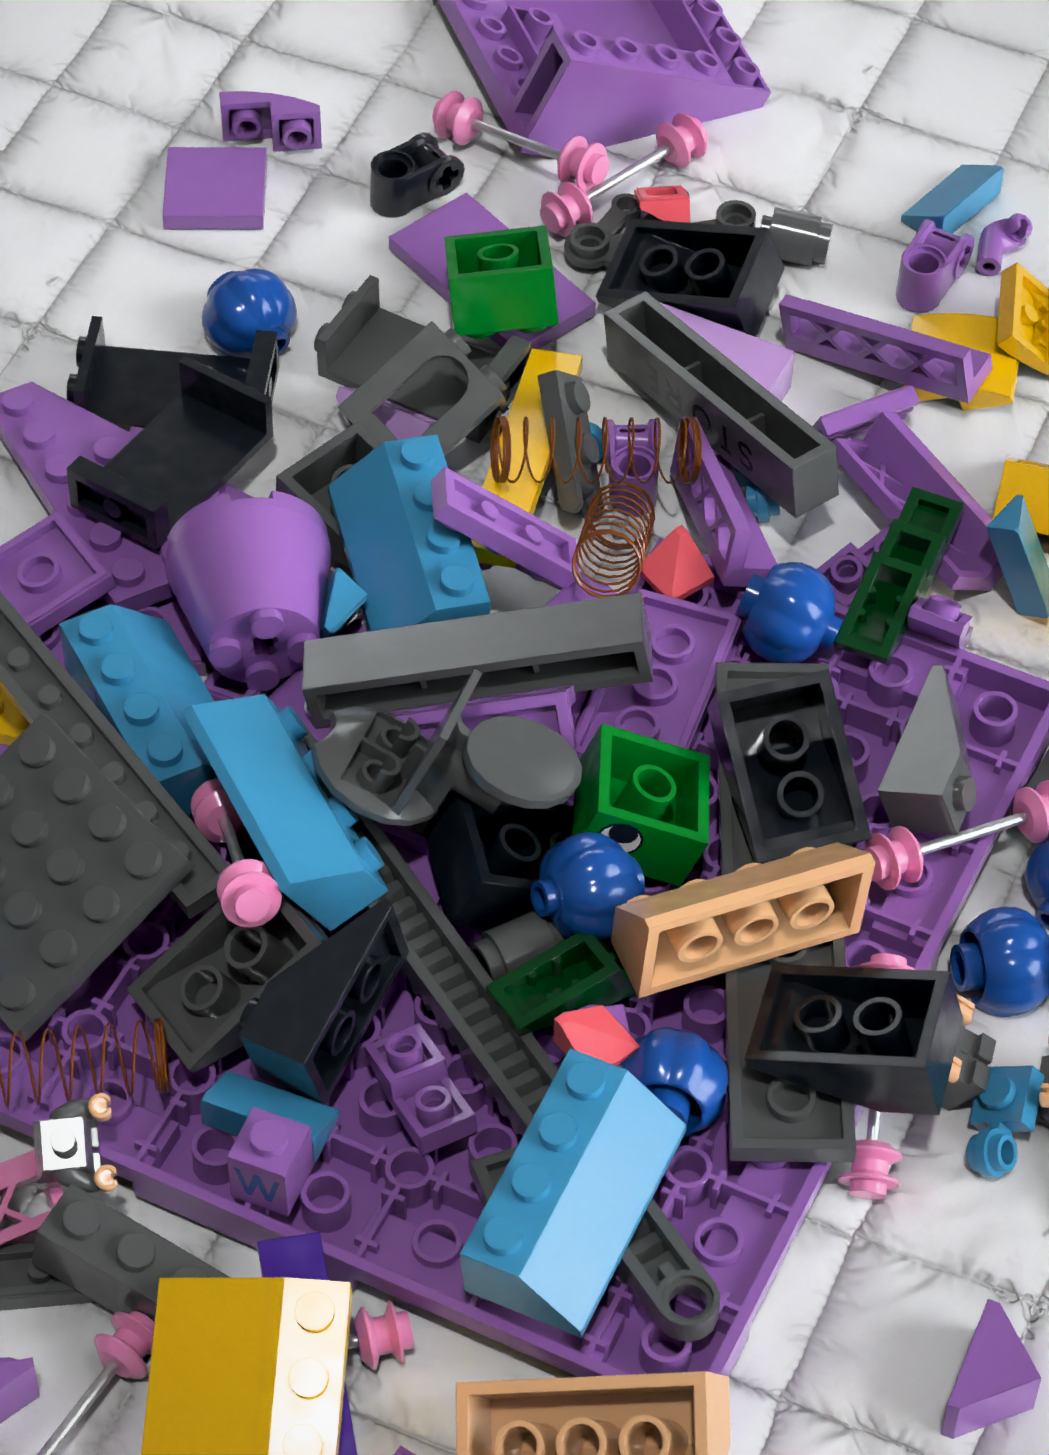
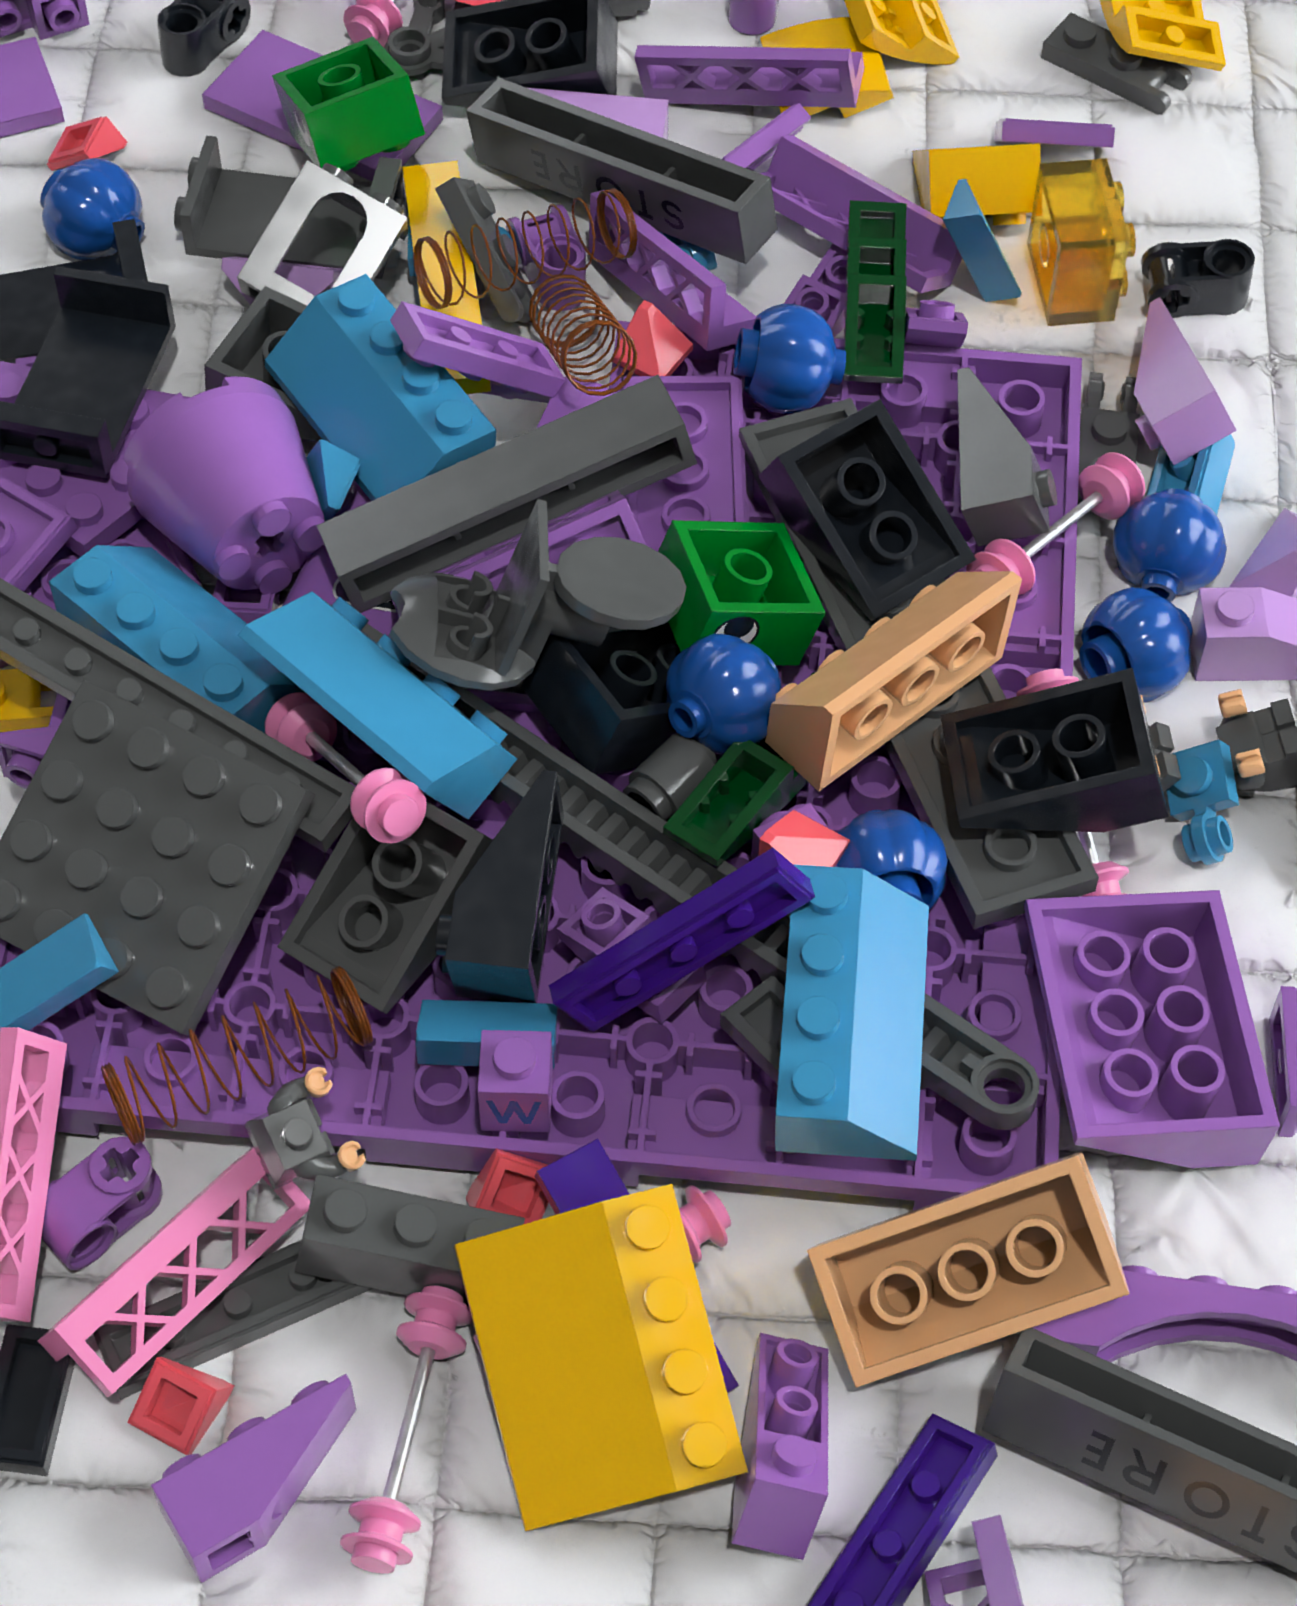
camera: 20 degrees left, 5 degrees up
(236, 1250) = (509, 1187): none -> coral slope
(271, 252) = (86, 141): none -> coral slope
(451, 1083) = (682, 940): none -> dark purple tile
(848, 1295) = (1152, 1027): none -> medium lavender slope

